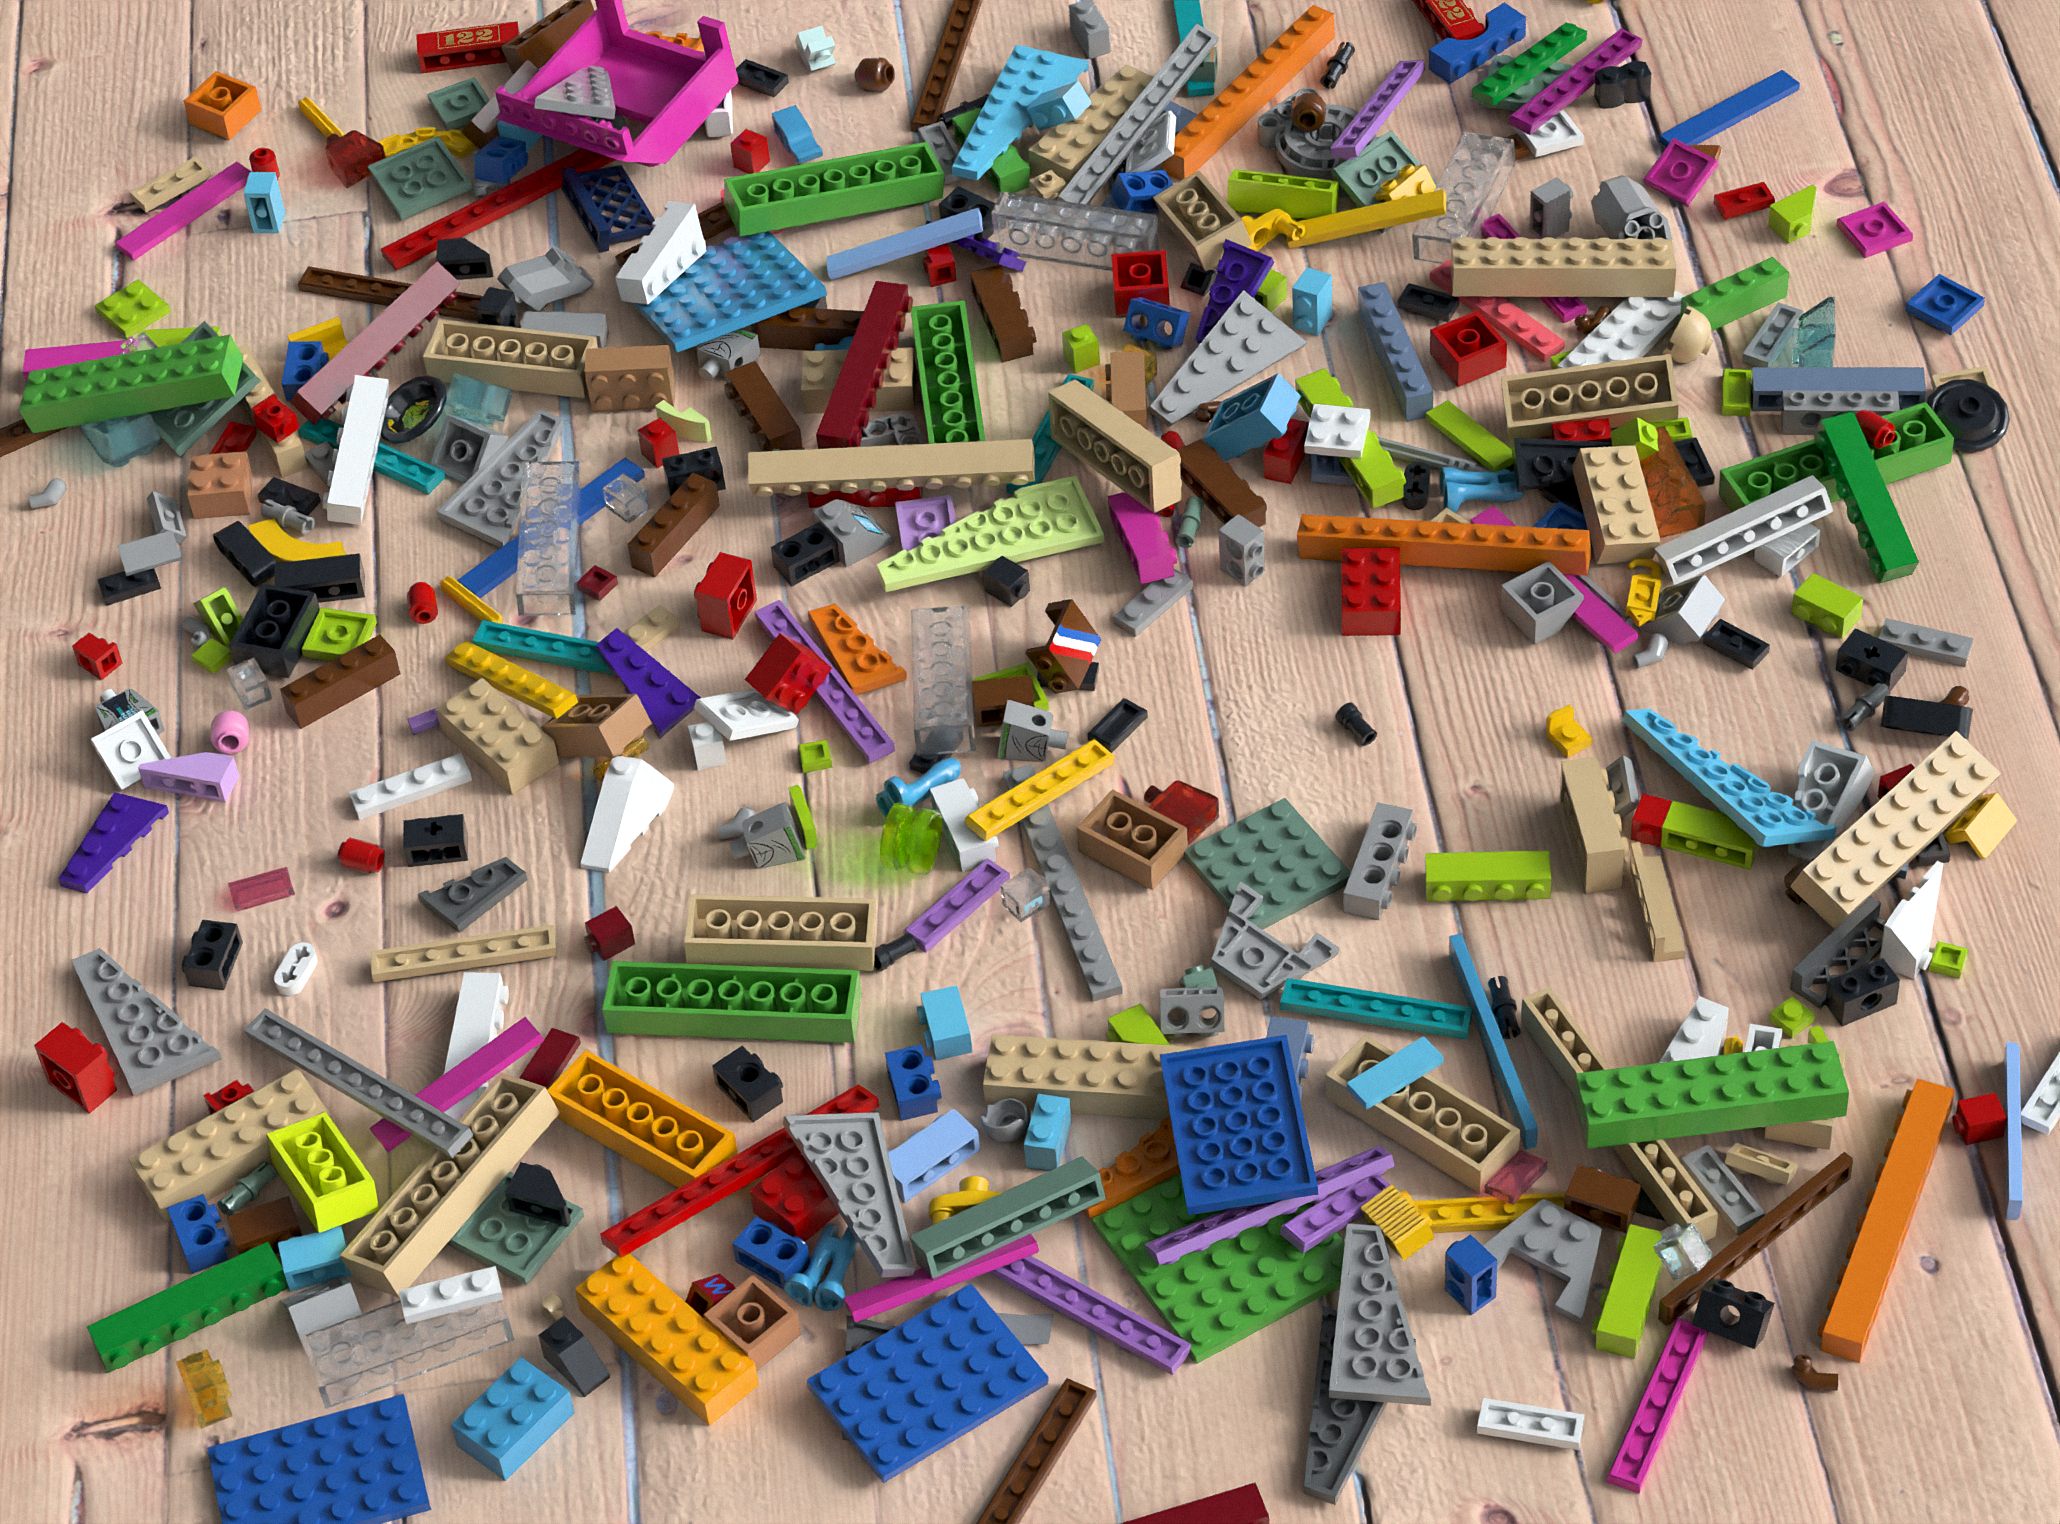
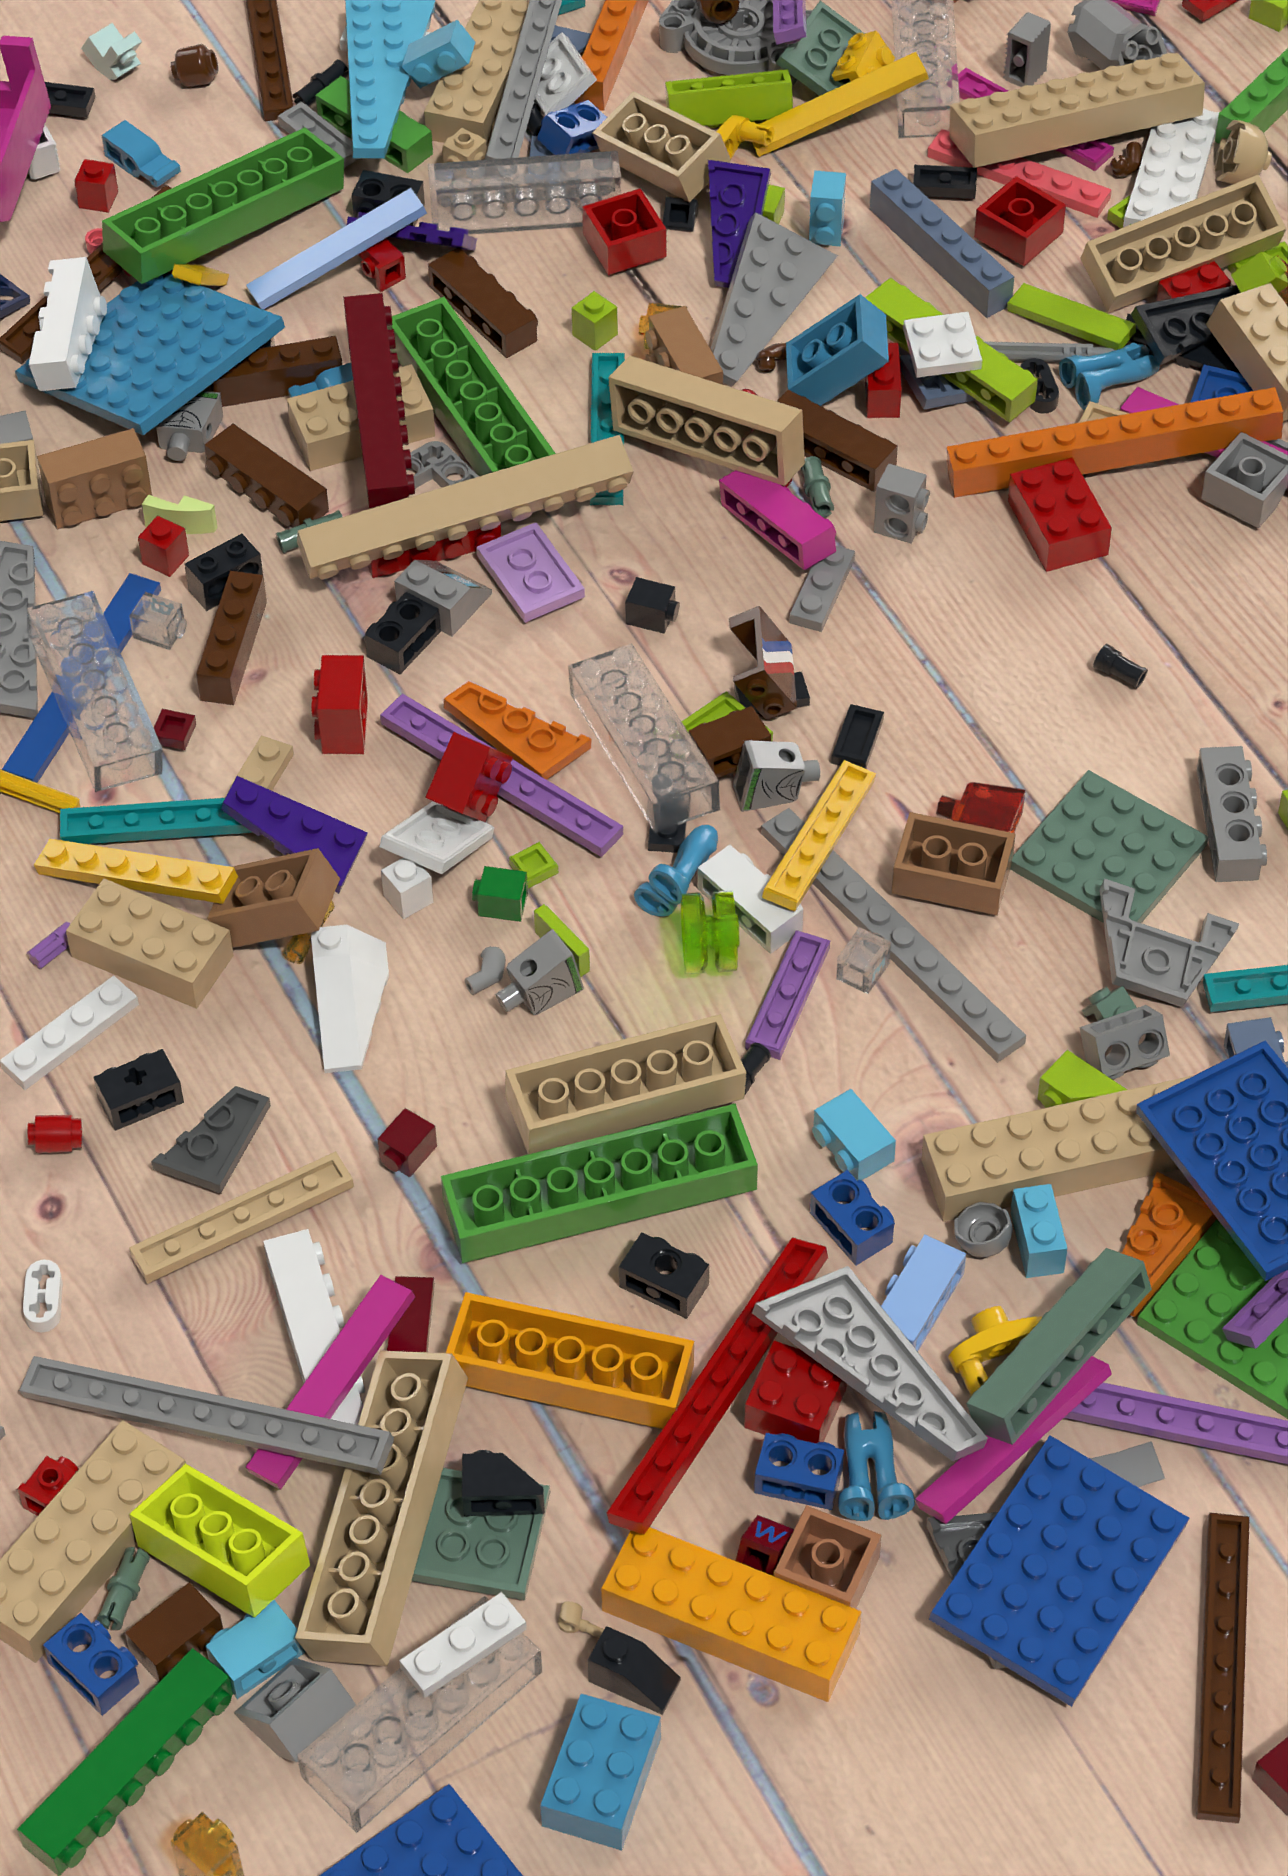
camera: 25 degrees left, 5 degrees up
(776, 769) = (501, 893): none -> green brick
(791, 240) = (200, 275): none -> yellow tile
(1027, 526) = (637, 536): yellowish green wing -> none
(1157, 315) = (665, 262): blue brick -> none

